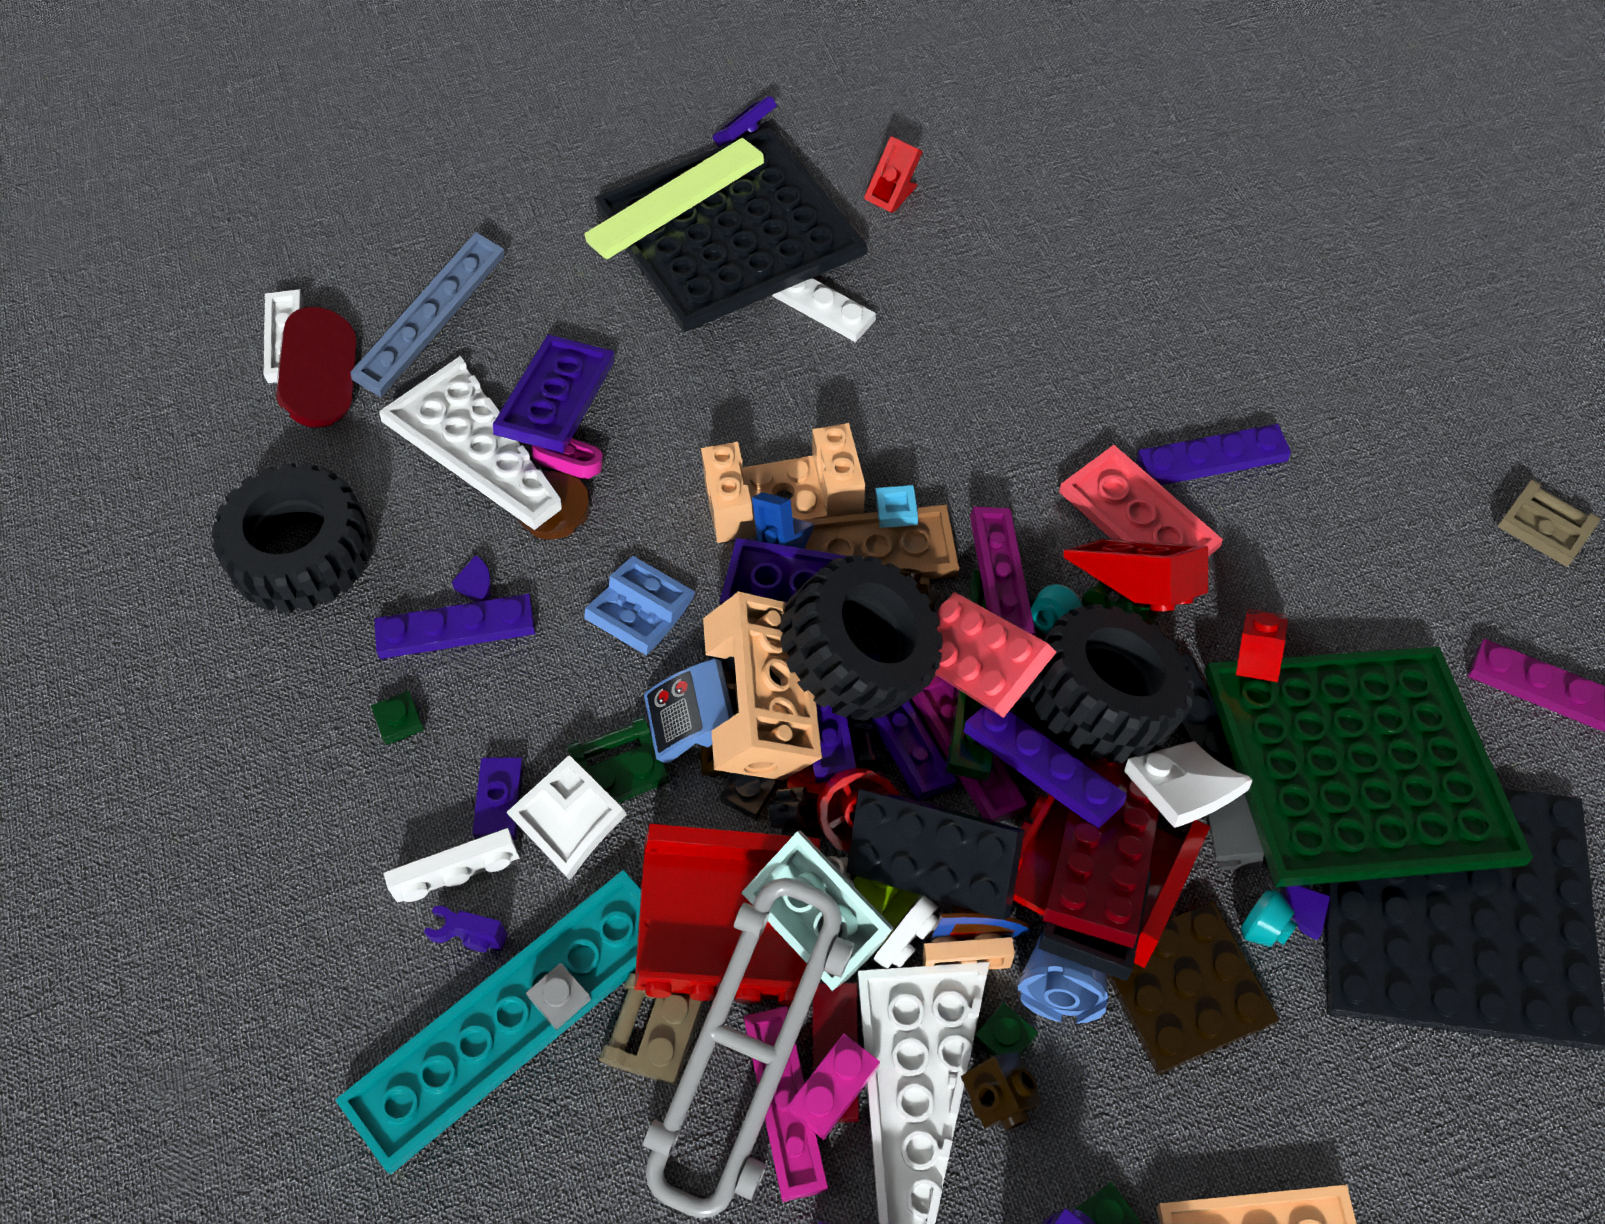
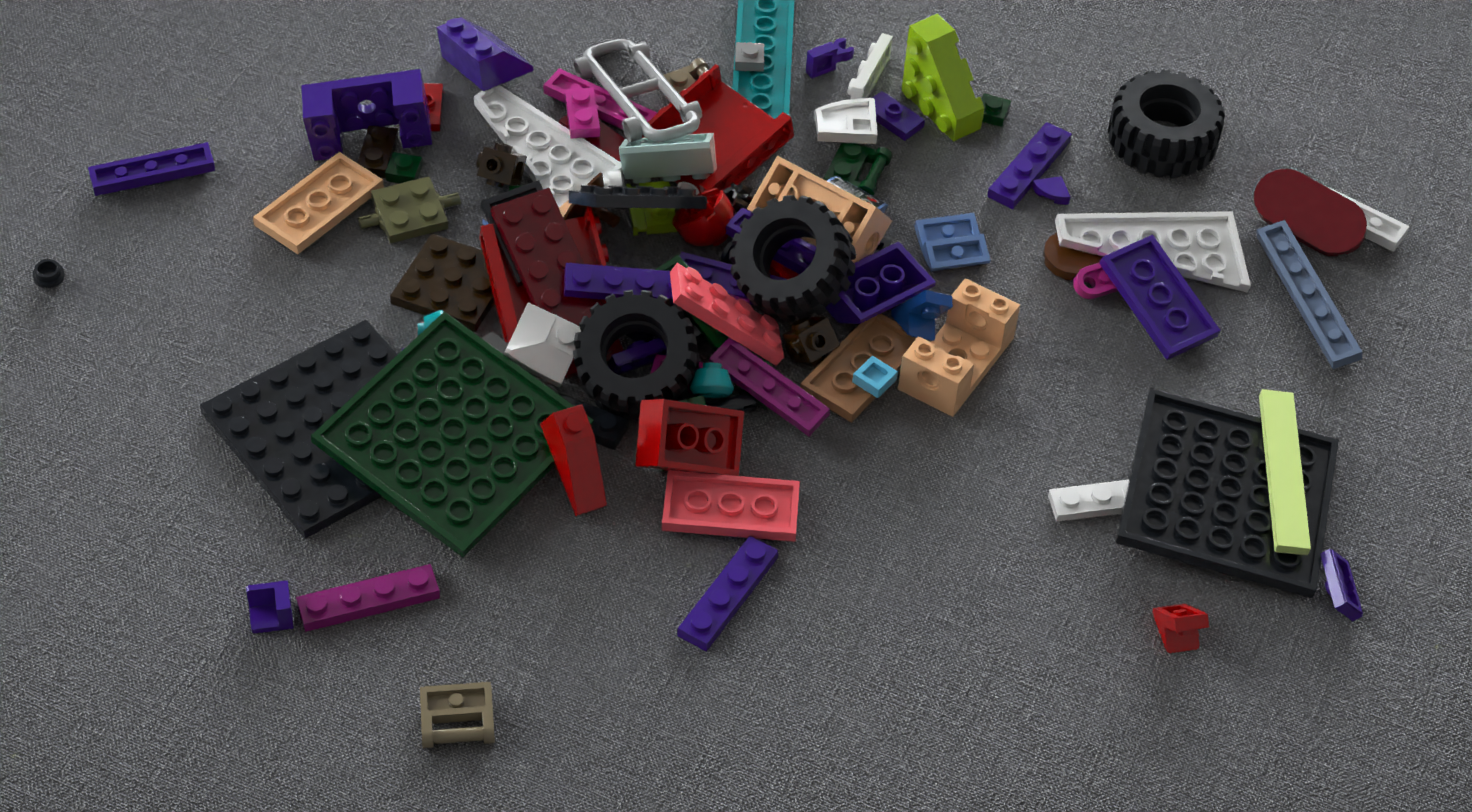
camera: 130 degrees right, 10 degrees down
(422, 762) = (940, 79): none -> lime brick
(1155, 1138) = (409, 210): none -> olive plate

